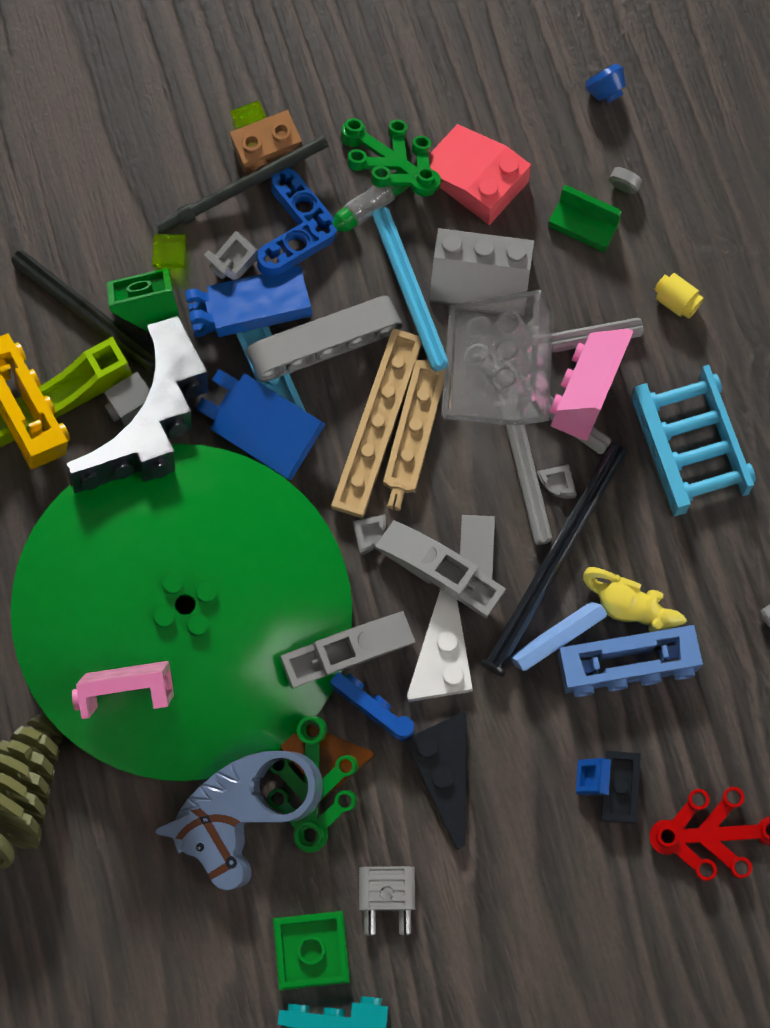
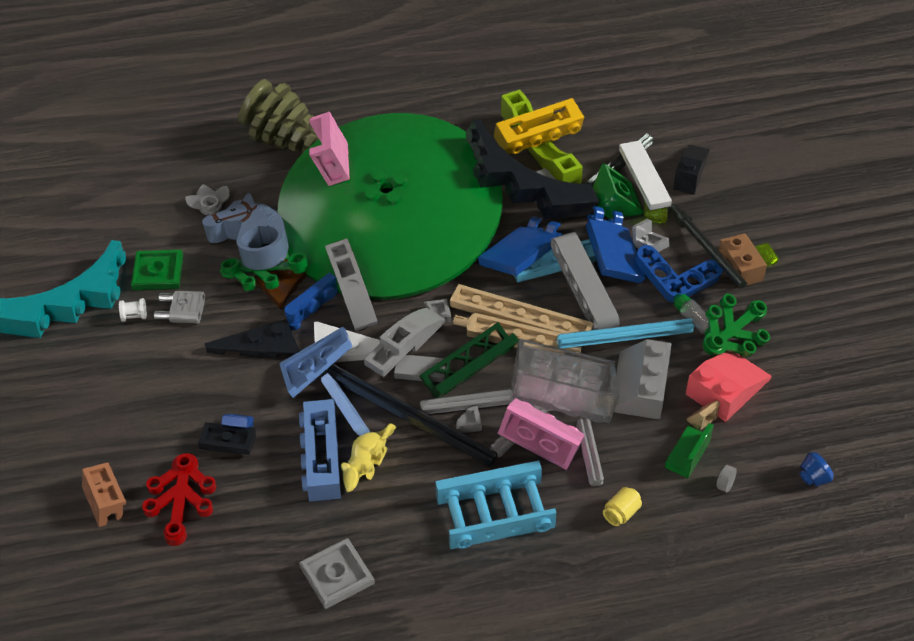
camera: 90 degrees right, 25 degrees down
(80, 198) = (690, 169): none -> black slope
(107, 259) = (645, 175): none -> white tile
(155, 900) = (208, 200): none -> light grey plate
(402, 967) = (132, 310): none -> white bush
(481, 475) = (475, 364): none -> dark green fence
(491, 685) = (314, 360): none -> medium blue wing
(528, 202) = (704, 415): none -> tan slope
(729, 934) = (102, 492): none -> nougat hinge

